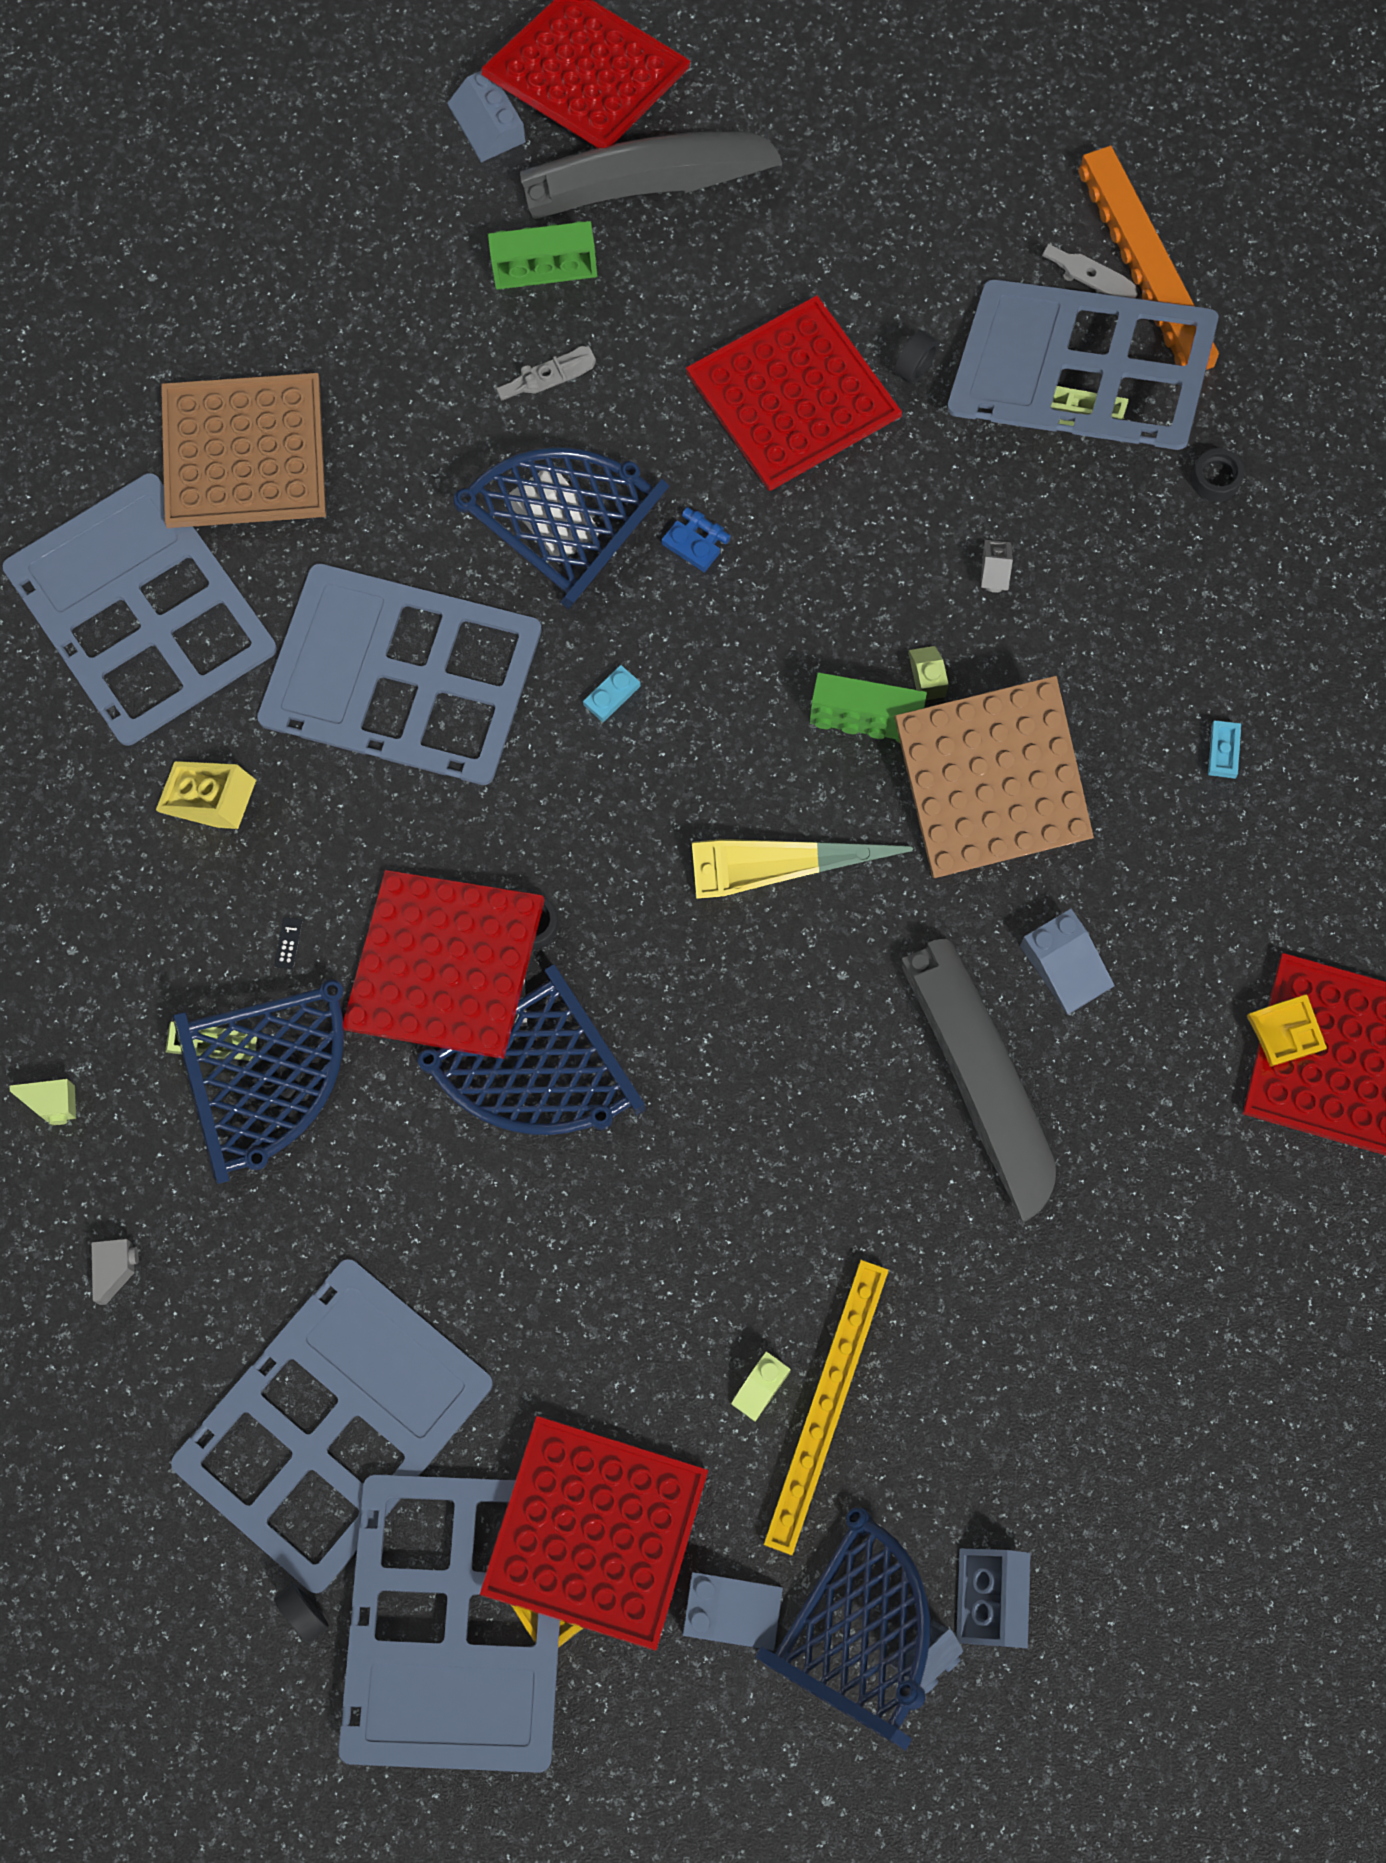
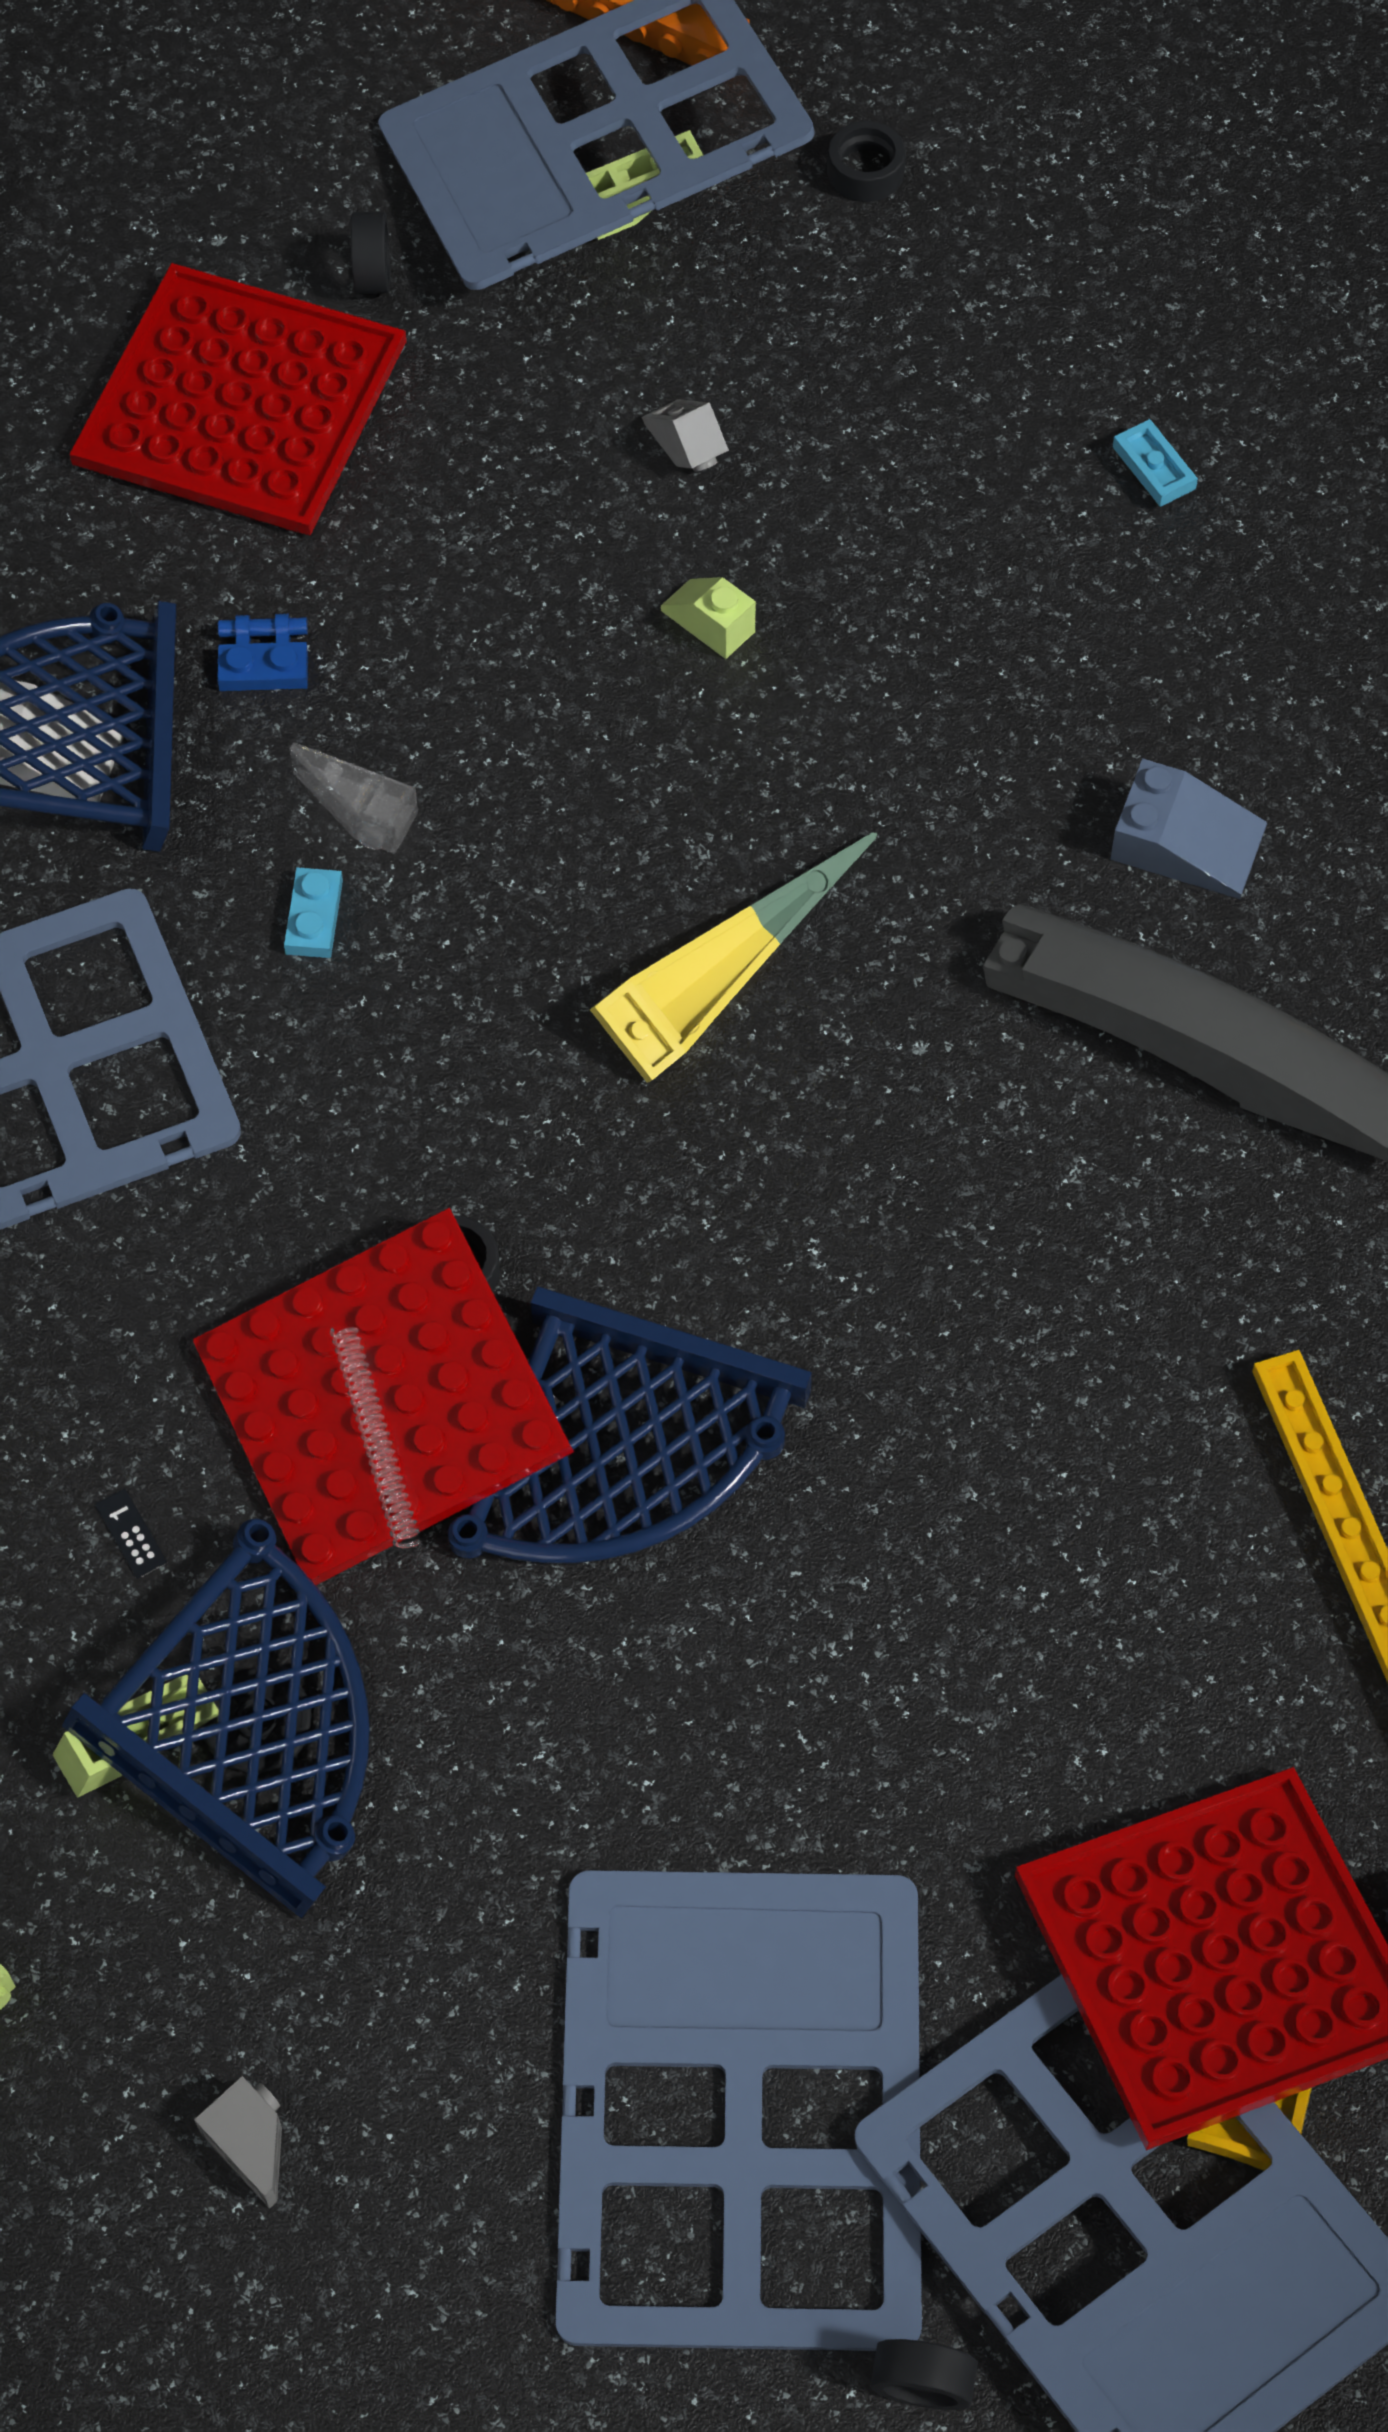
camera: 40 degrees left, 10 degrees down
(418, 983) = (403, 1514): none -> clear piece
(680, 658) = (362, 801): none -> clear slope
(760, 1386) = (1267, 1611): yellowish green slope -> none
(861, 705) = (676, 698): bright green brick -> none
(994, 776) = (909, 671): medium nougat plate -> none
(1104, 279) = (484, 29): light grey piece -> none

